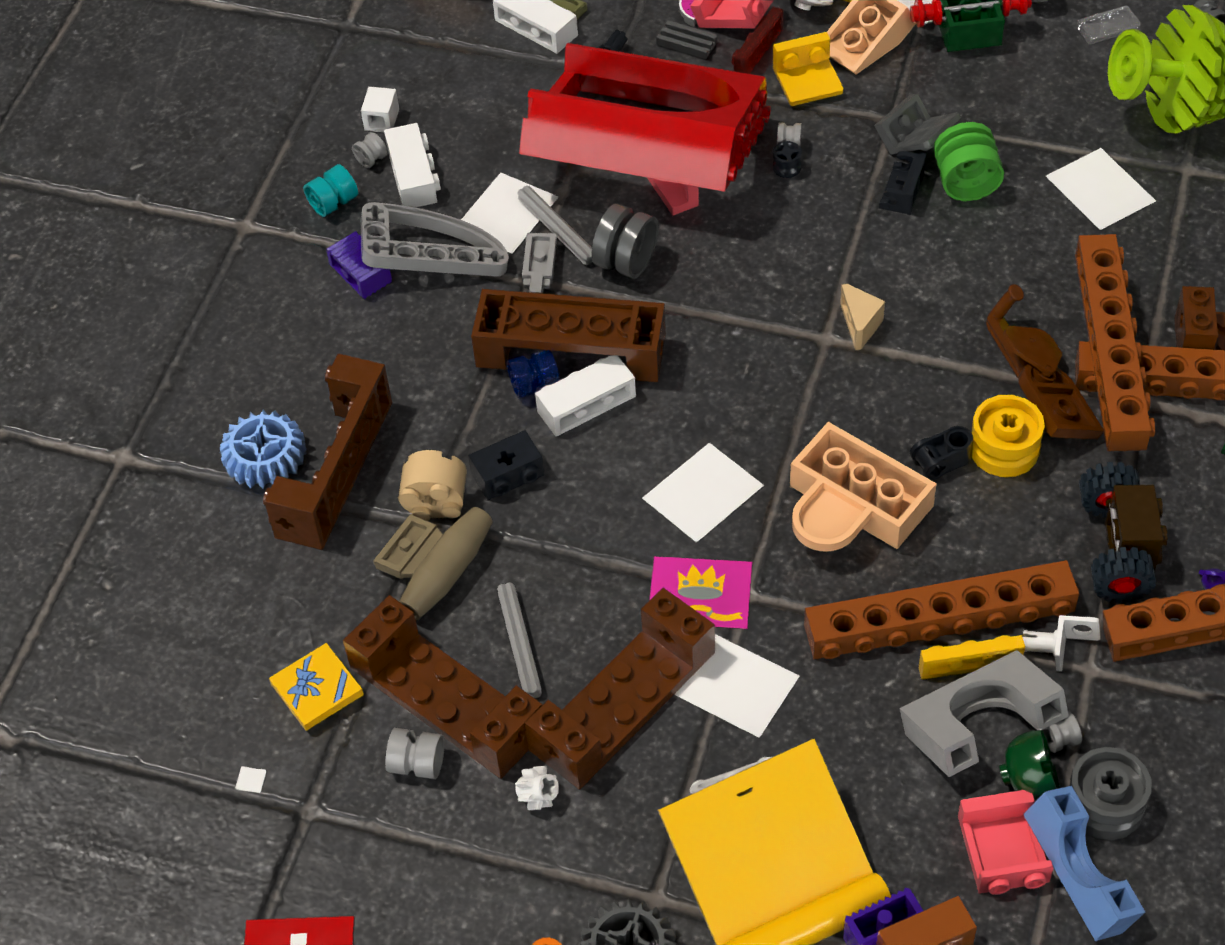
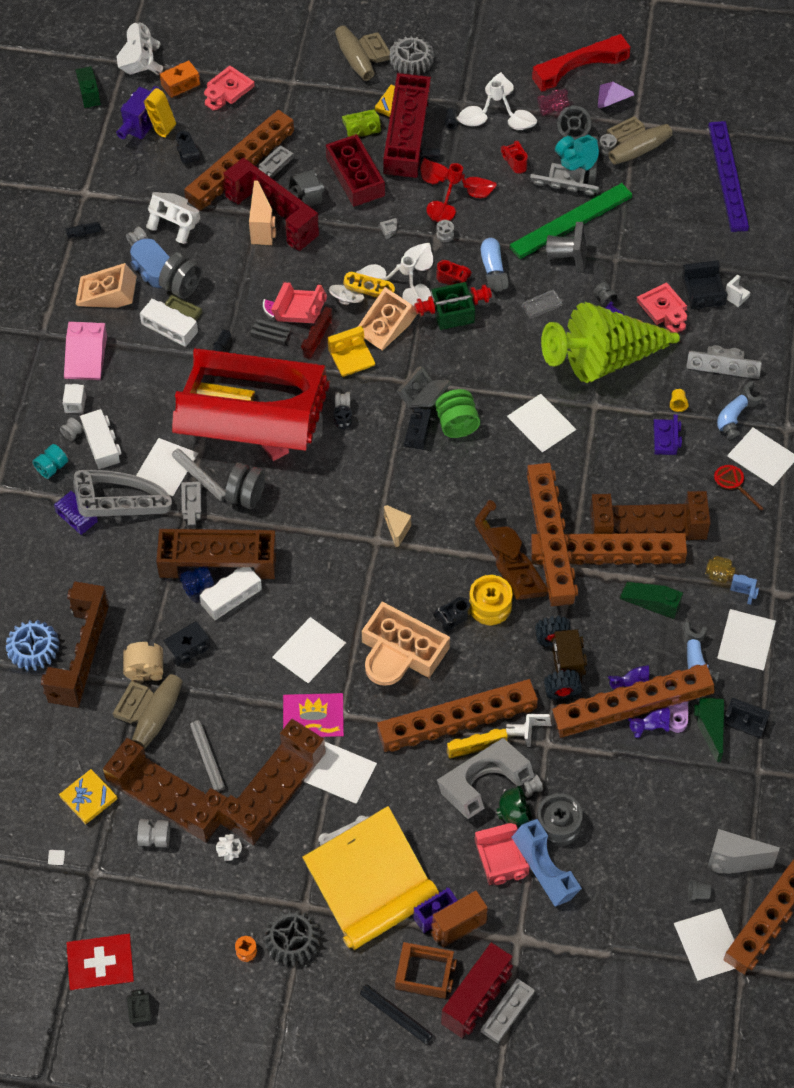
camera: 10 degrees left, 5 degrees up
(405, 46) = (85, 350): none -> bright pink slope

